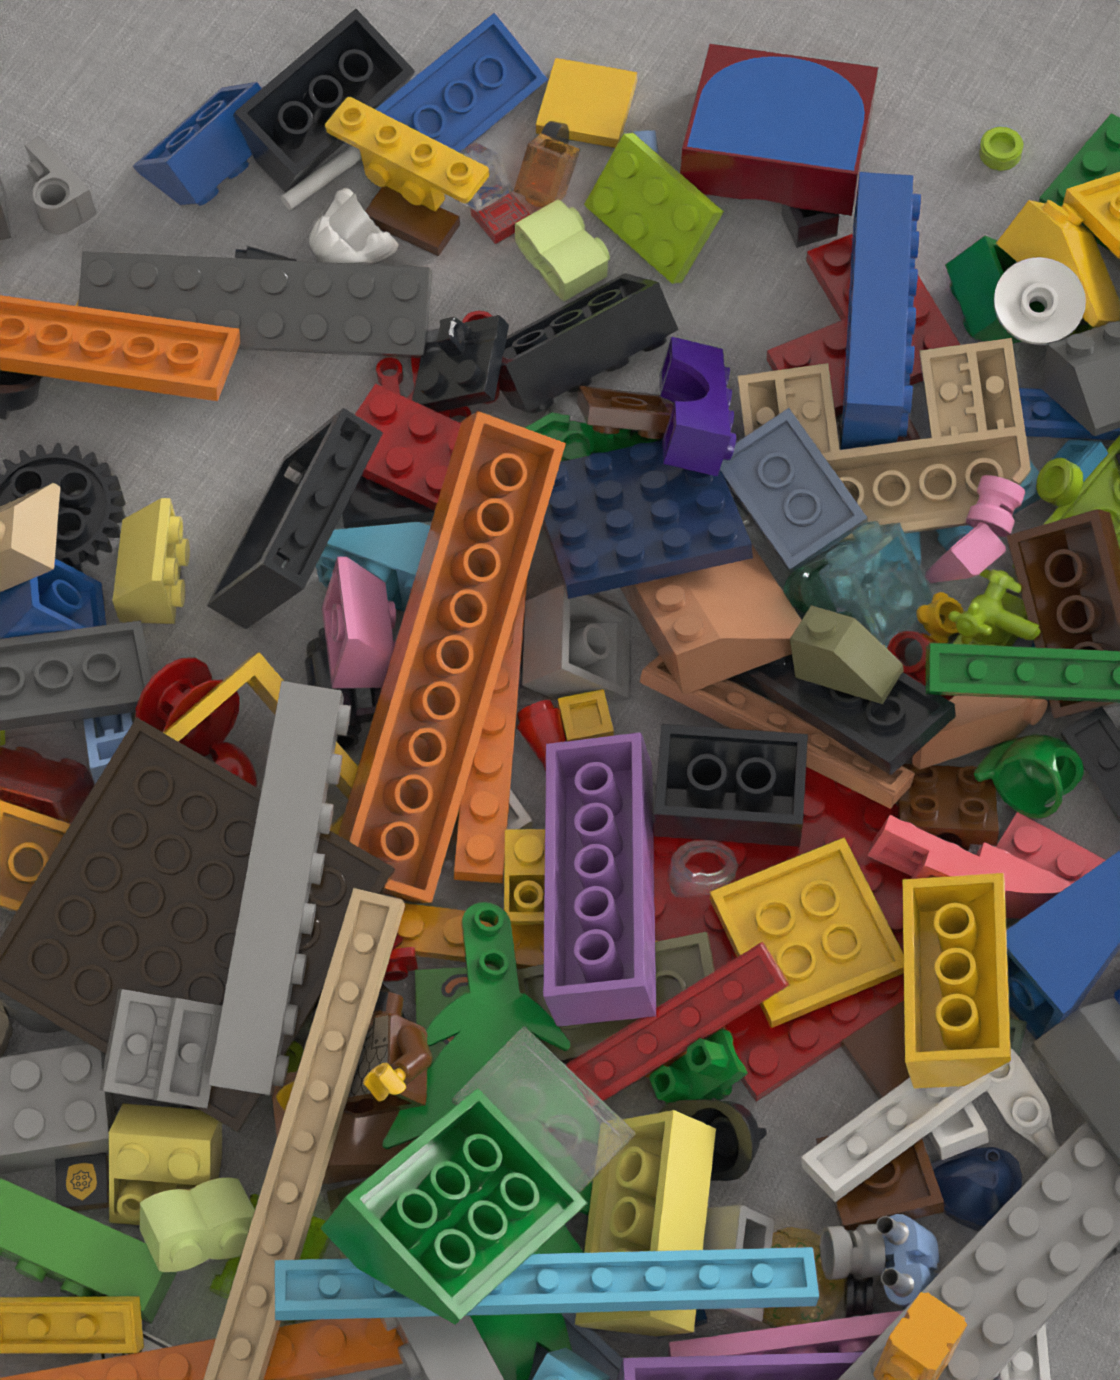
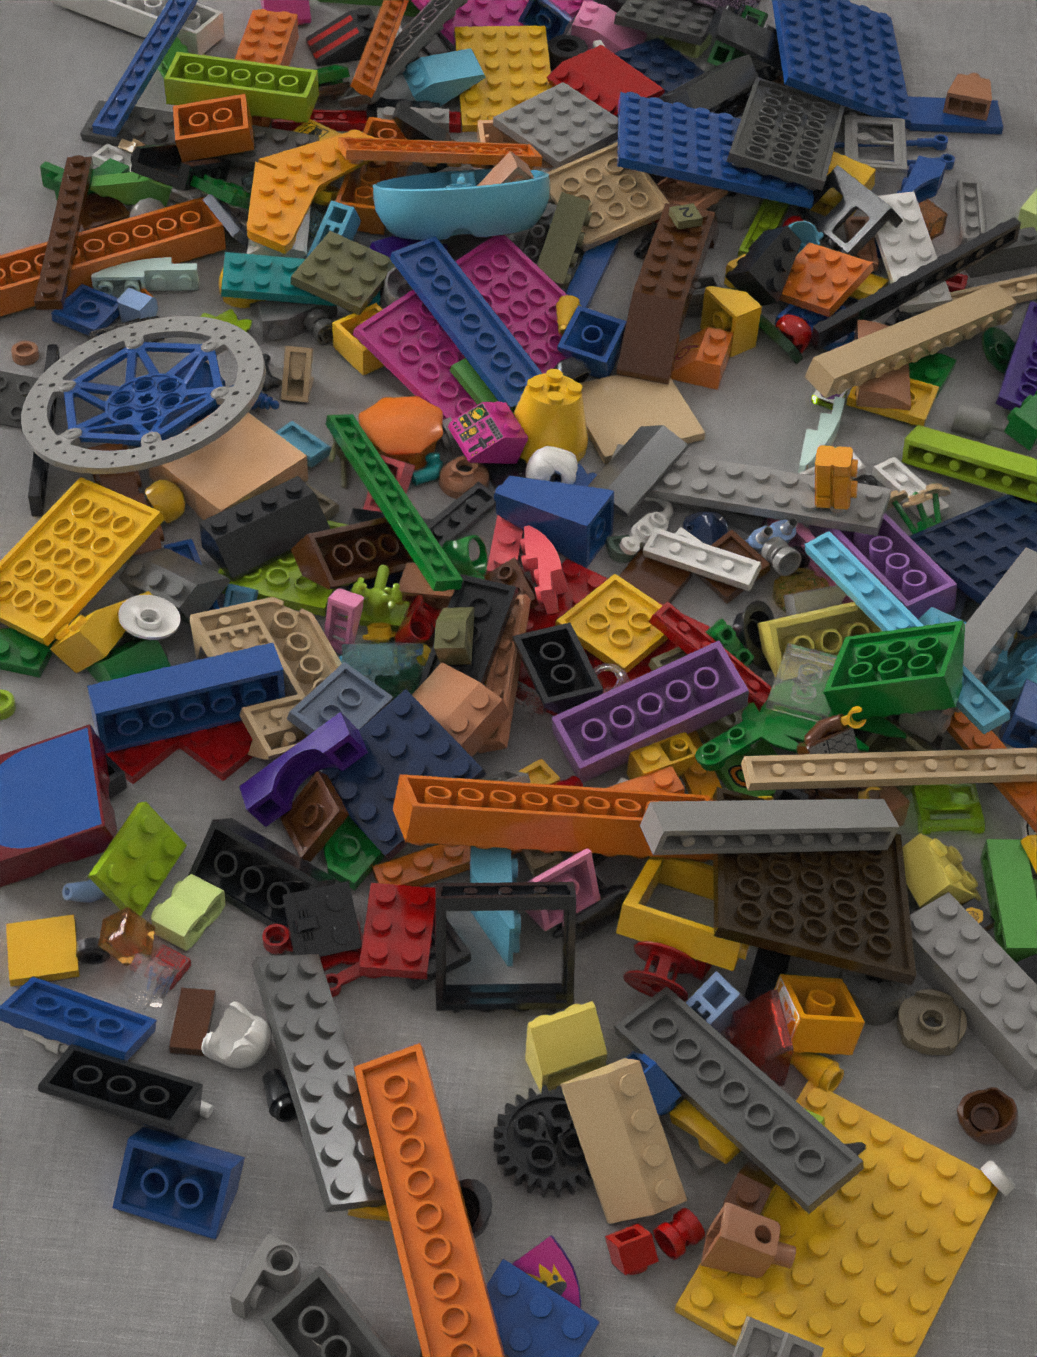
camera: 120 degrees left, 15 degrees down
(161, 1048) = (888, 871): light grey slope -> none
(196, 1224) = (964, 827): yellowish green brick -> none
(406, 158) = (158, 1013): yellow bracket -> none
(955, 979) = (618, 539): yellow slope -> none
(996, 504) = (308, 601): bright pink wheel -> none
(1059, 482) = (264, 590): lime tile -> none

